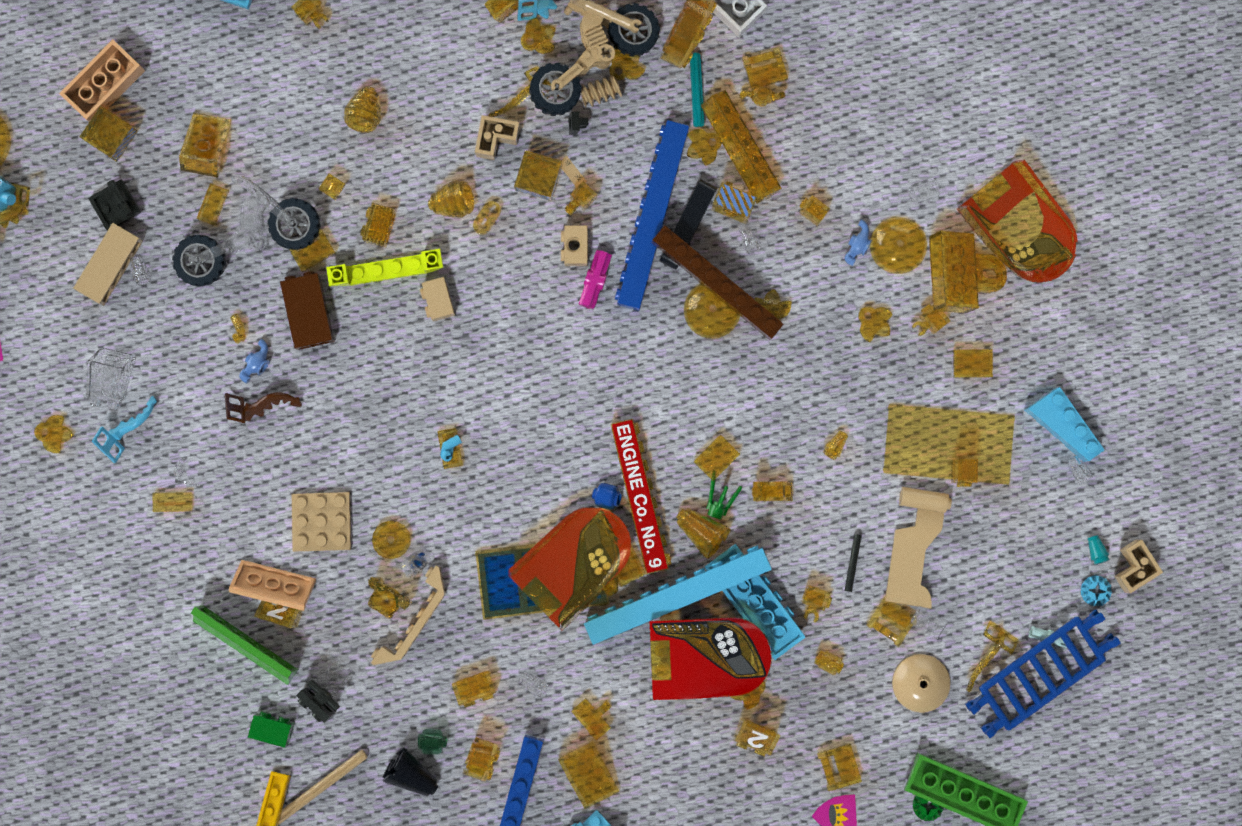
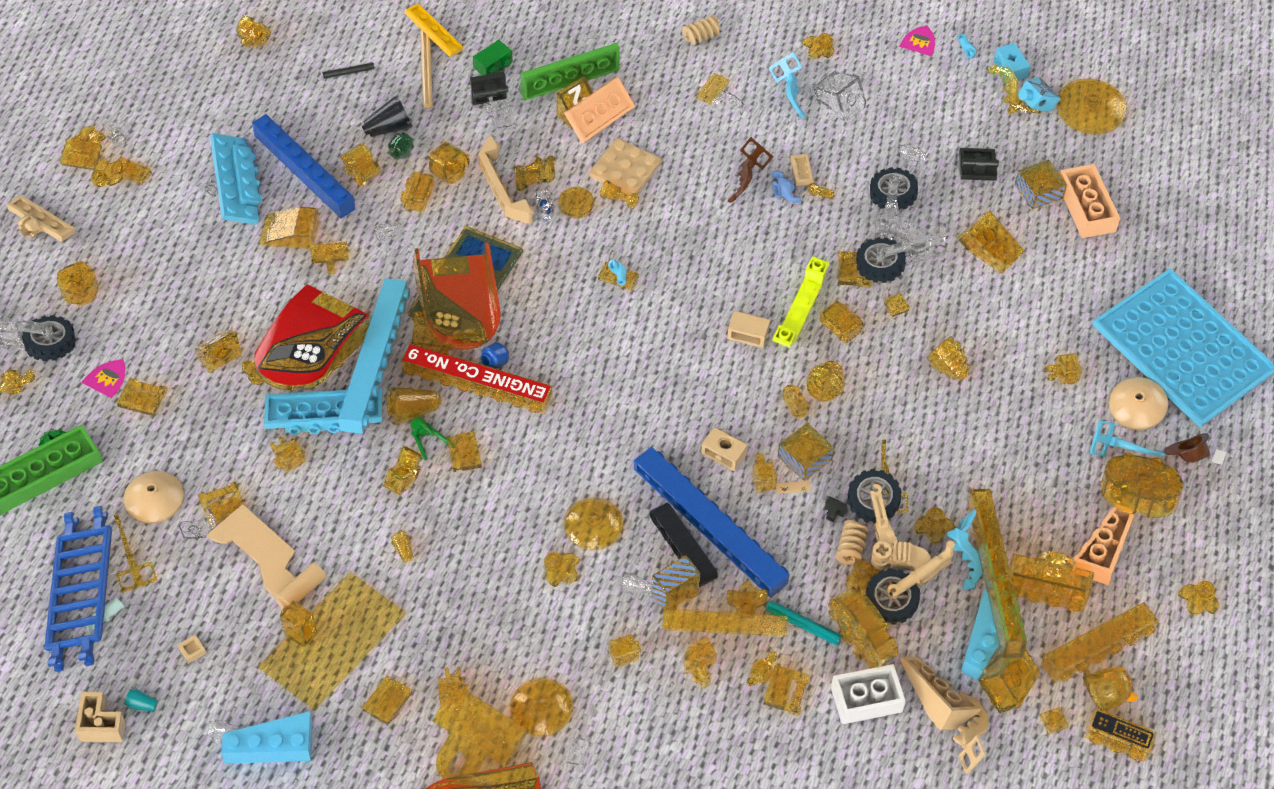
camera: 120 degrees right, 30 degrees down
(107, 555) = (701, 28): none -> tan piece
(108, 264) = (931, 136): tan brick -> none
(212, 204) = (931, 220): clear yellow tile -> none
(223, 359) = (801, 169): none -> tan plate
(307, 310) = (802, 238): reddish brown brick -> none
(360, 513) = (613, 192): none -> clear yellow piece
(427, 680) = (448, 162): none -> clear yellow brick
(493, 131) = (865, 439): tan brick -> none
(595, 279) = (684, 448): dark pink piece -> none
(717, 283) = (612, 525): reddish brown brick -> none
(784, 151) = (696, 658): none -> clear yellow brick
(829, 662) = (229, 435): clear yellow brick -> none
(853, 563) = (294, 503): pearl dark grey bar -> none
(859, 243) = (566, 670): medium blue piece -> none
(876, 325) = (483, 643): clear yellow plate -> none
(1031, 545) = (191, 649): none -> tan plate
(1091, 583) = (107, 687): medium azure gear -> none

